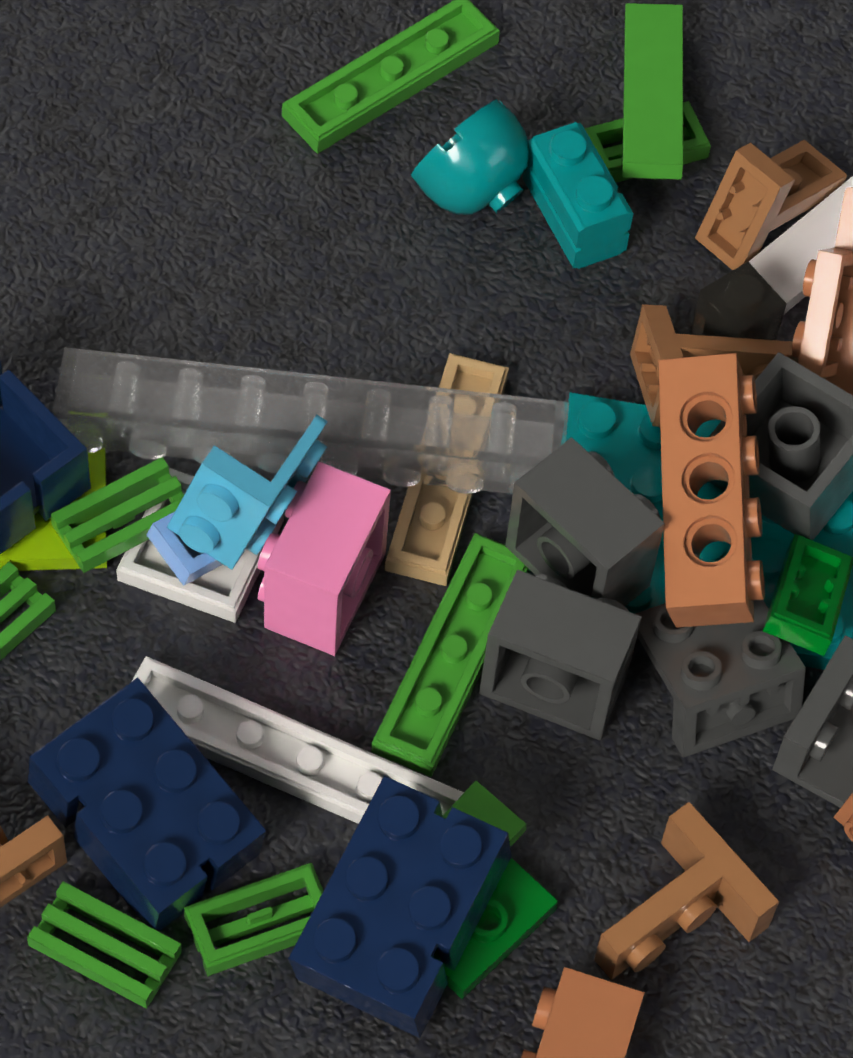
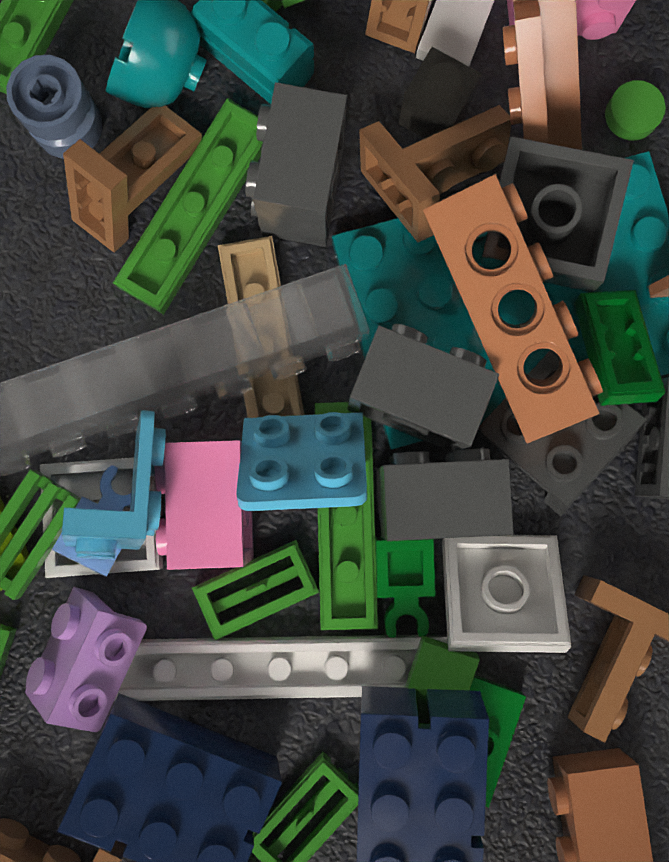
camera: 25 degrees left, 25 degrees up
(133, 640) = (83, 662): none -> lavender bracket
(347, 699) = (211, 609): none -> bright green tile
(355, 168) = (53, 104): none -> sand blue wheel
(383, 249) = (119, 178): none -> medium nougat bracket
(442, 550) = (302, 462): none -> medium azure bracket
(445, 312) = (192, 209): none -> bright green tile
(486, 728) = (405, 573): none -> green plate
(566, 310) = (298, 163): none -> dark grey brick
(583, 783) = (505, 594): none -> white tile

